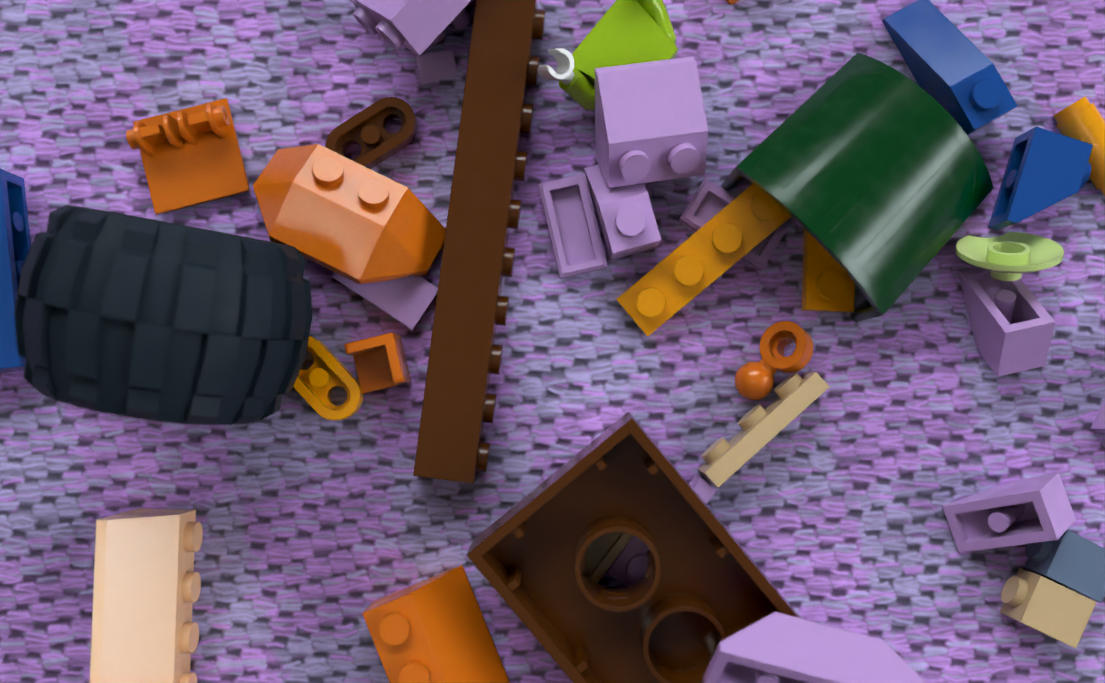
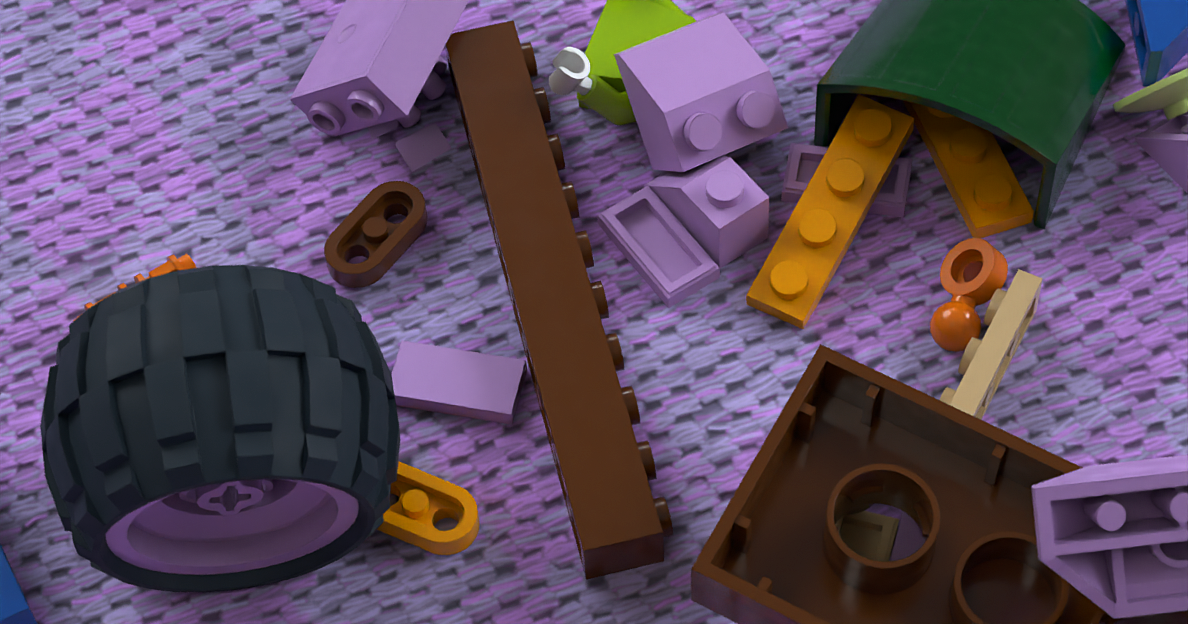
camera: 15 degrees left, 30 degrees down
(346, 216) = (414, 300): orange wedge -> none
(379, 362) = (485, 456): orange panel -> none

